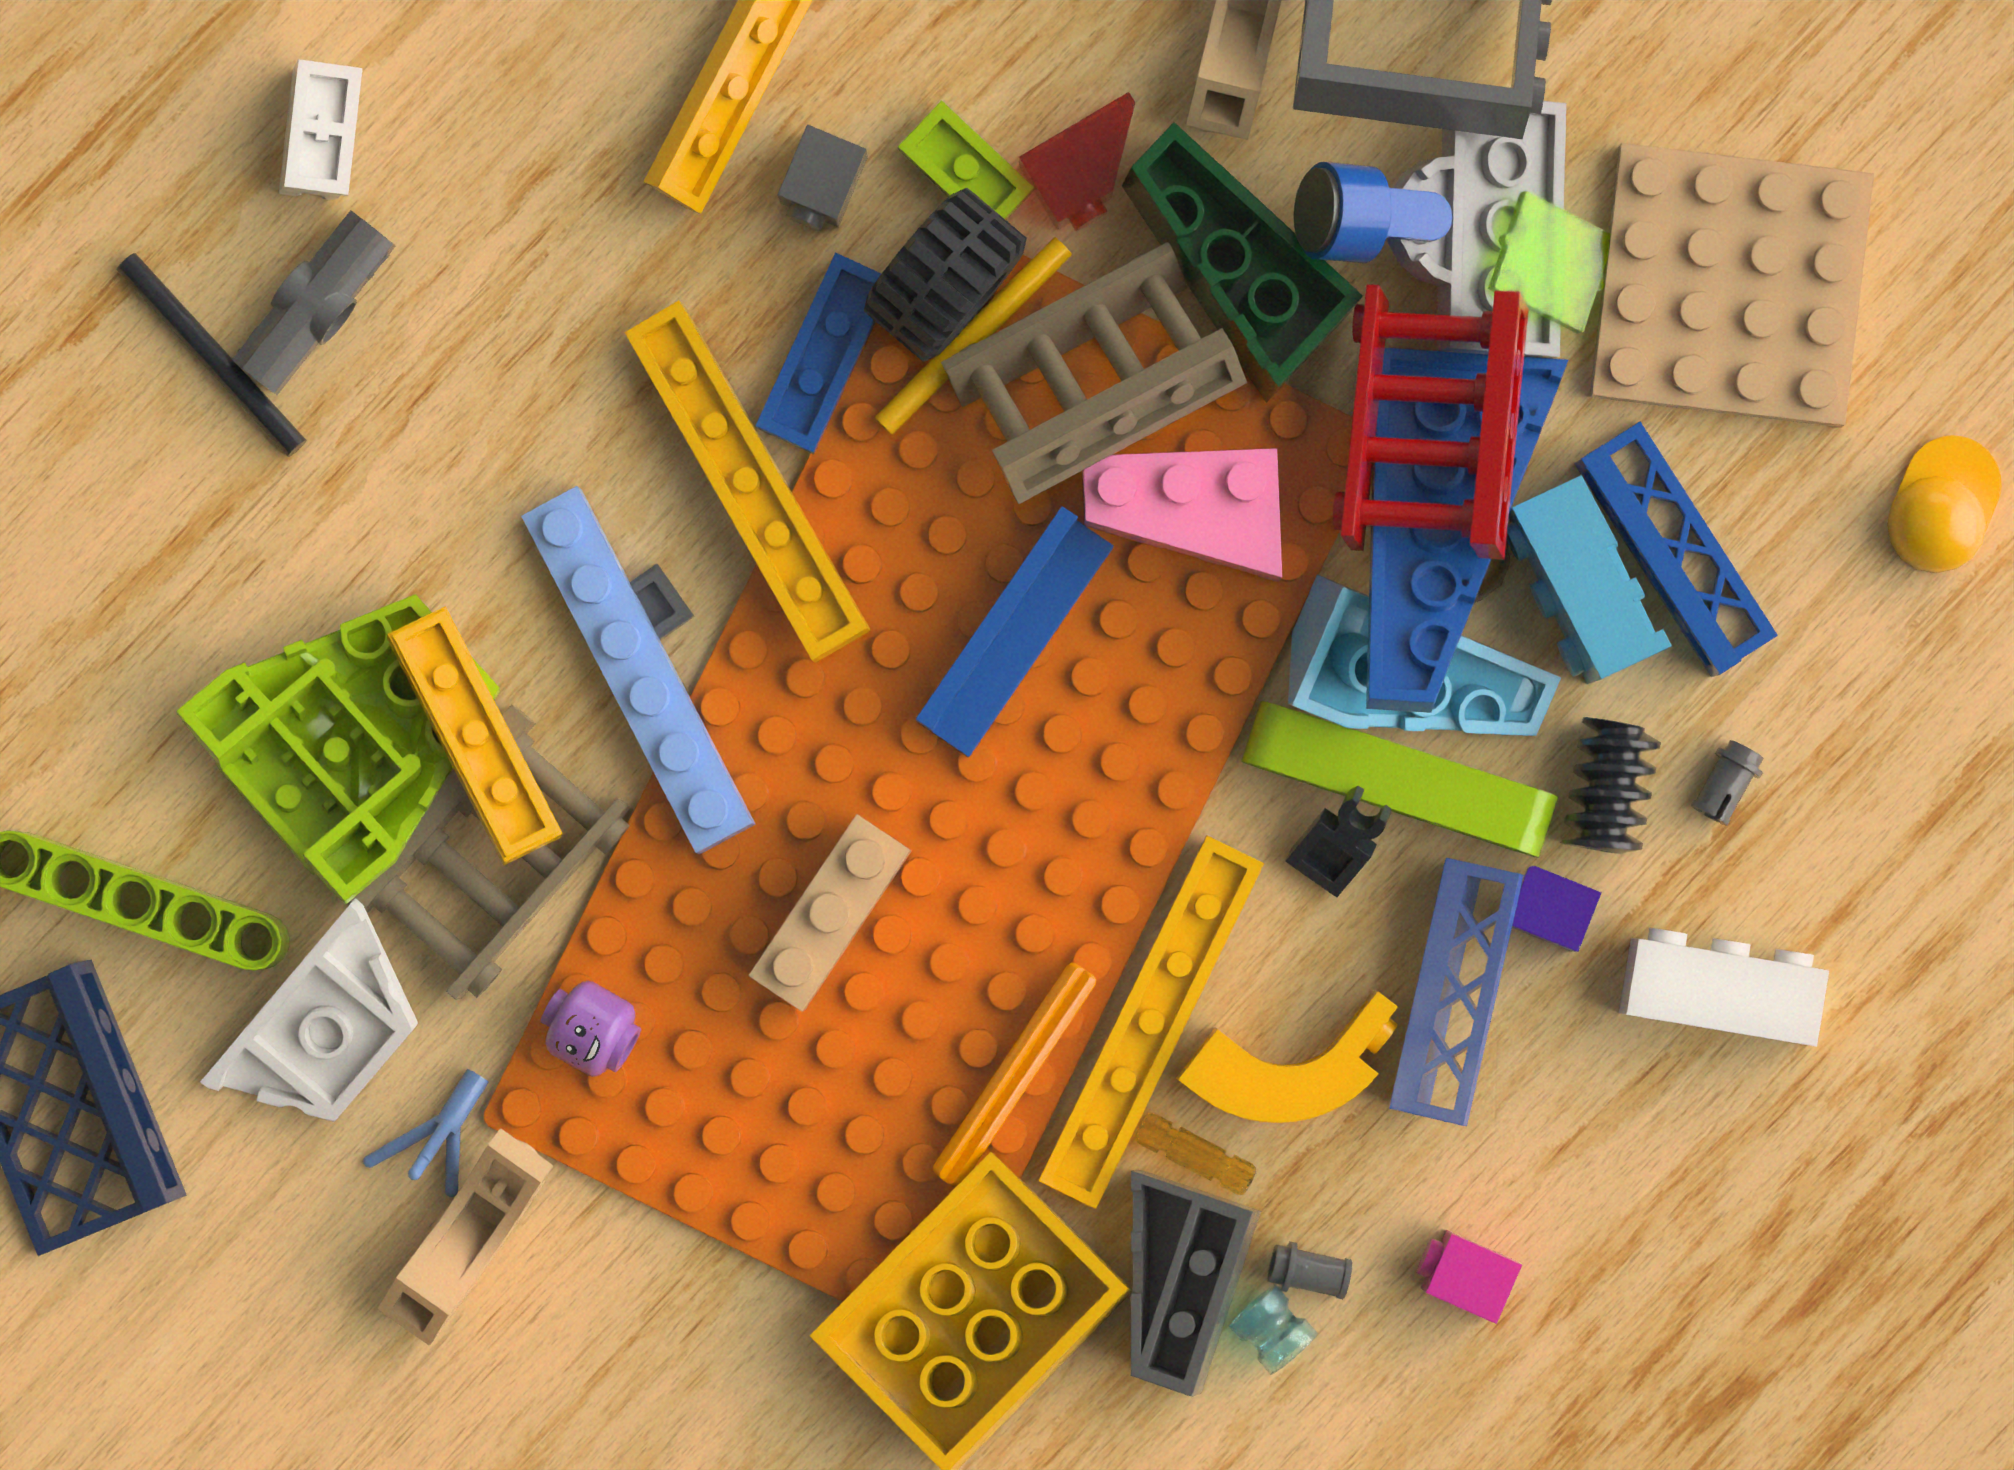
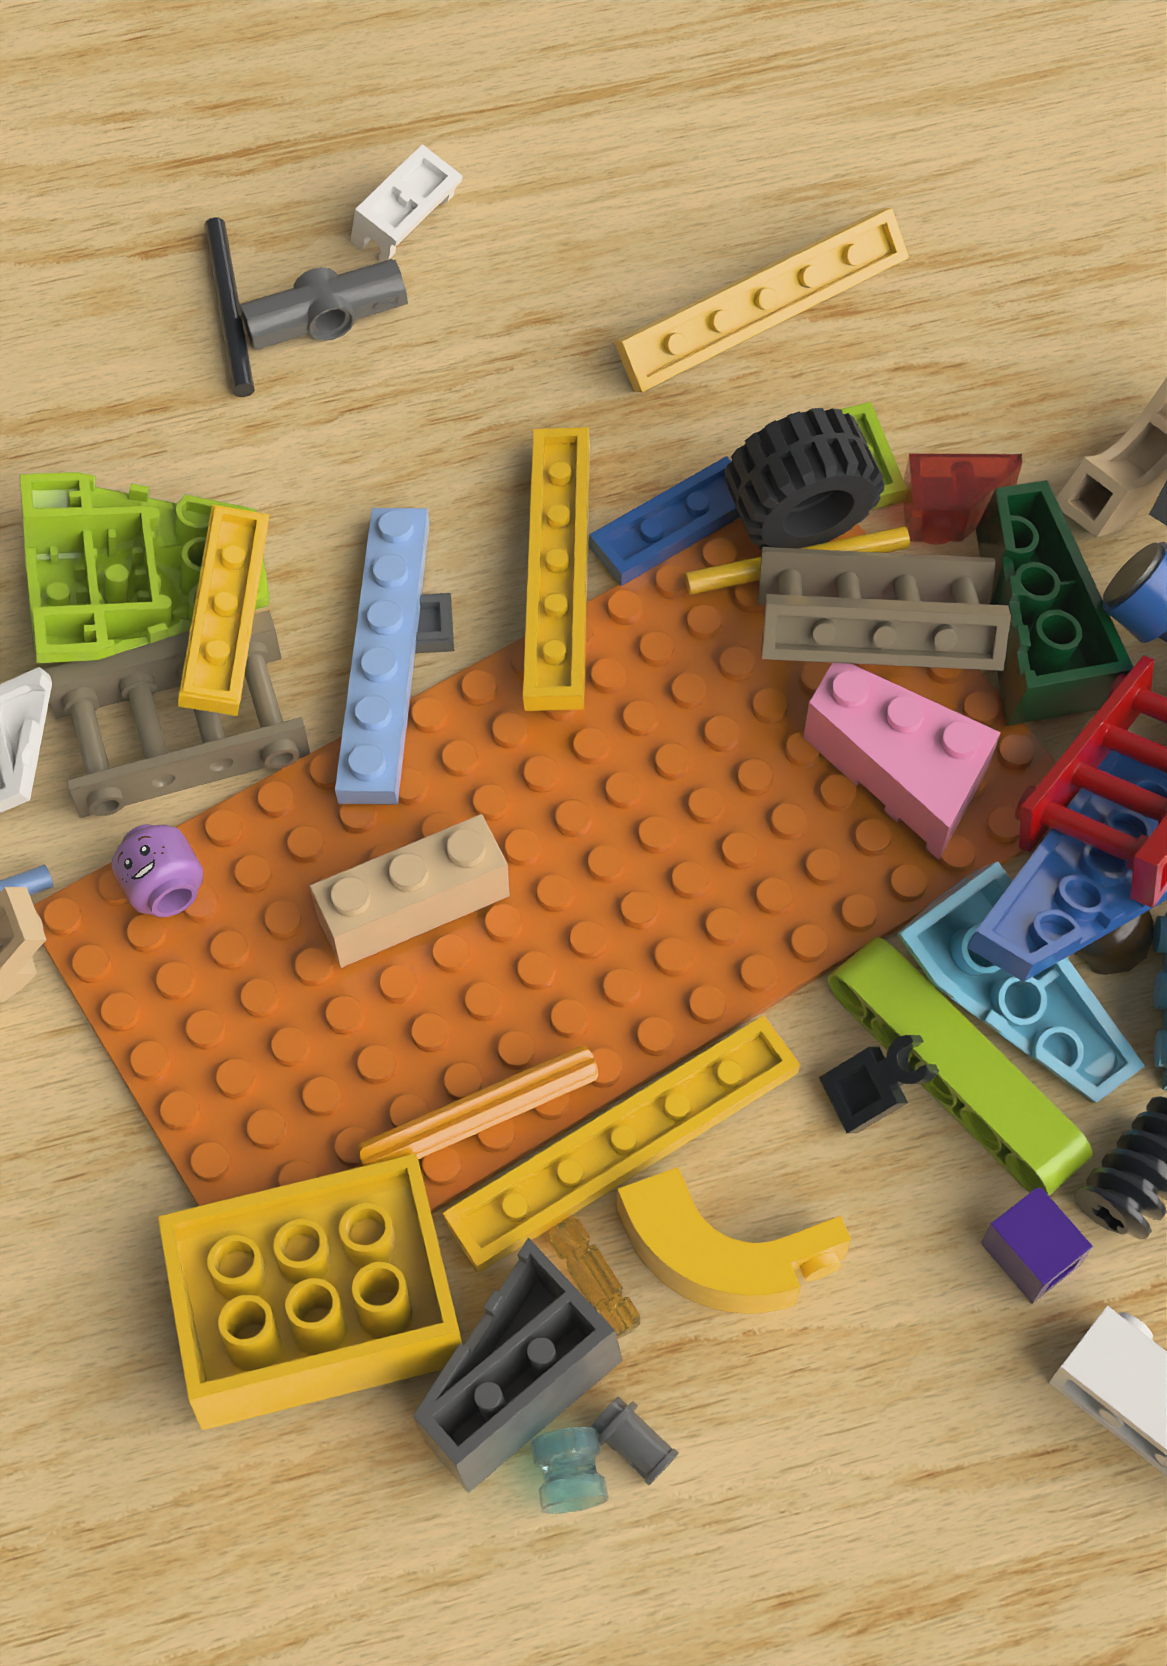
camera: 35 degrees right, 25 degrees down
(821, 178) = (746, 403): dark grey brick -> none
(1014, 632) = (695, 768): blue fence -> none
(1441, 988) = (906, 1246): blue fence -> none
(1468, 1275) = (780, 1529): dark pink brick -> none

